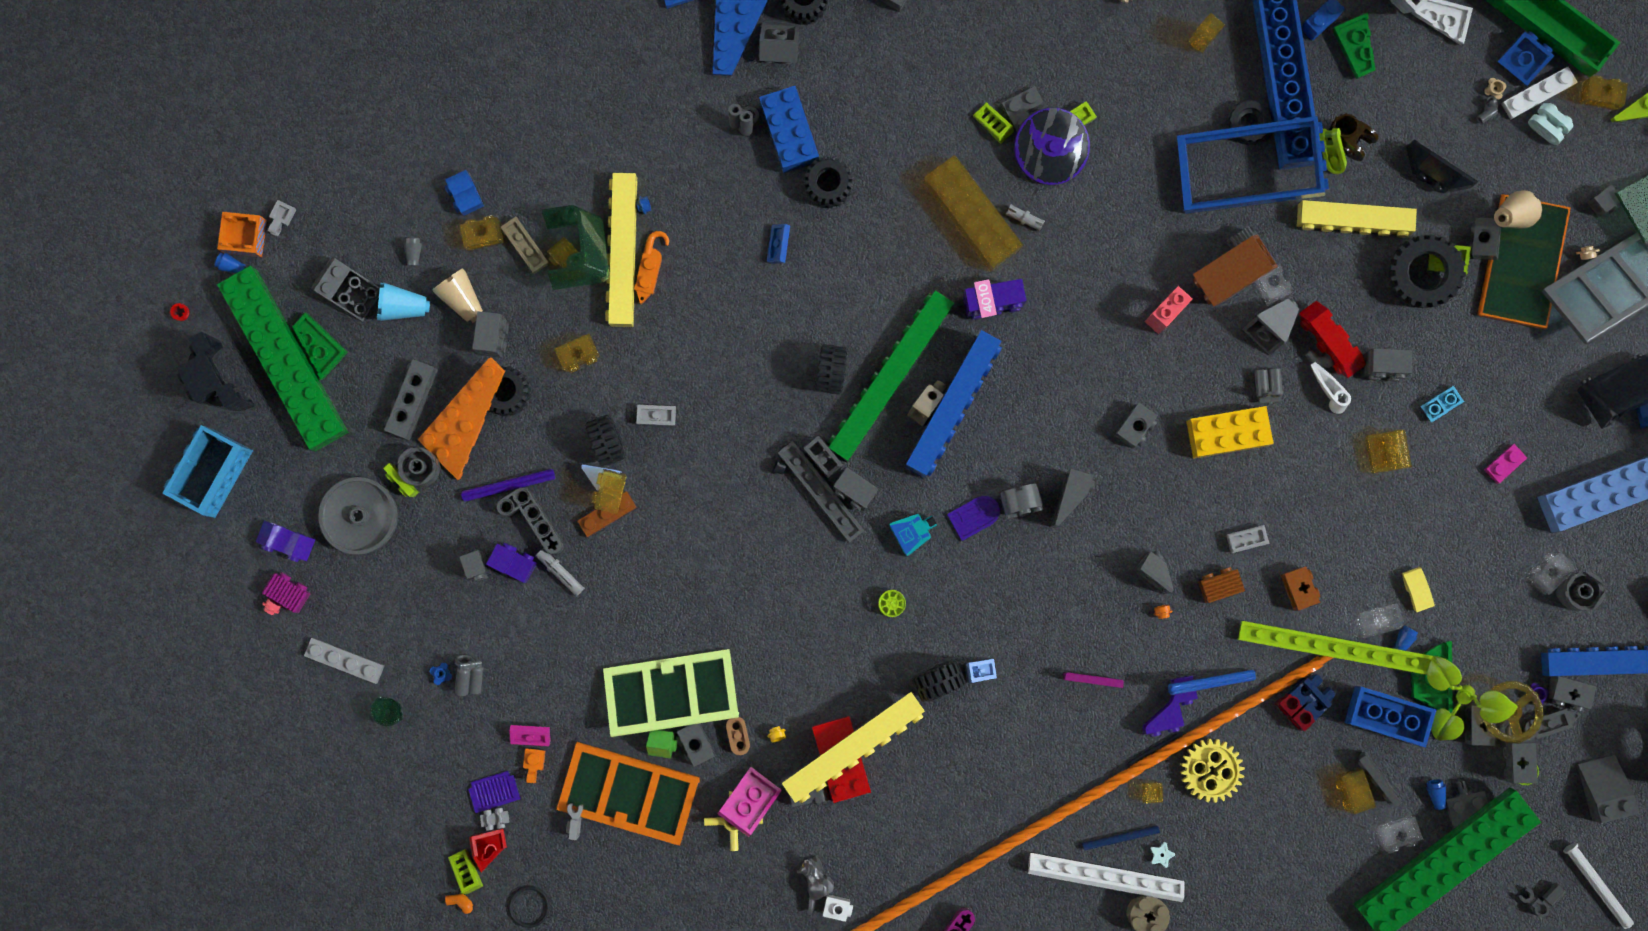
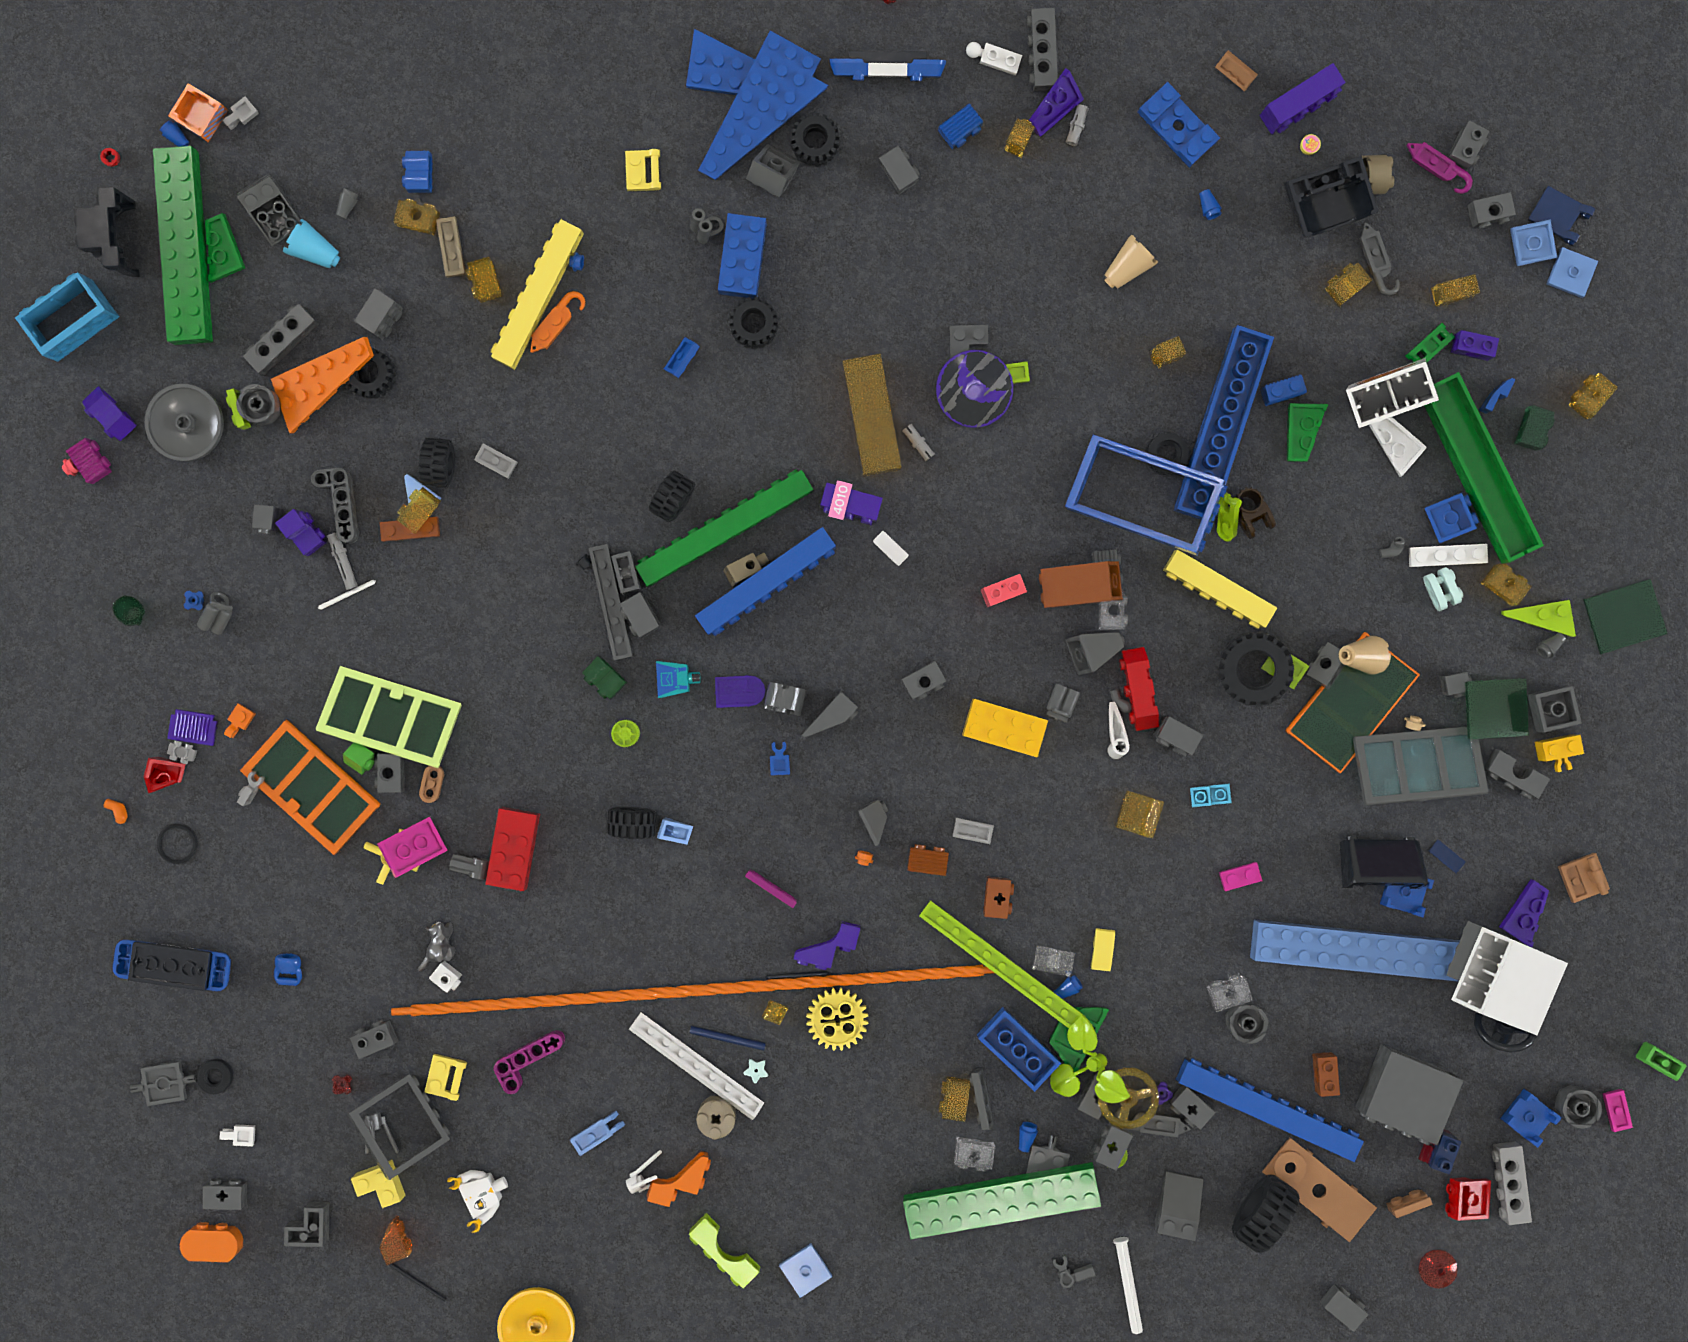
camera: 30 degrees right, 5 degrees up
(344, 660) = (113, 546): light grey plate -> none
(459, 295) = (368, 265): tan cone -> none
(471, 869) = (140, 794): lime slope -> none
(508, 485) = (333, 459): dark purple axle -> none
(529, 735) = (246, 693): dark pink plate -> none
(577, 601) = (347, 594): none -> white axle
(585, 346) = (442, 364): clear yellow brick -> none
(591, 263) = (502, 292): clear green windscreen -> none
(657, 99) = (637, 170): none -> light yellow plate
(776, 734) = (466, 799): yellow plate -> none
(848, 562) = (604, 678): none -> dark green brick
(853, 747) = (524, 844): light yellow brick -> none
(1004, 134) = (939, 355): lime slope -> none
(1044, 562) = (779, 763): none -> blue plate
(1046, 323) = (890, 548): none -> white sticker
(1211, 682) = (875, 942): blue axle -> none
(1305, 702) = (950, 999): hips -> none
(1436, 170) = (1315, 581): black wedge -> none
(1500, 85) = (1415, 531): tan plate -> none

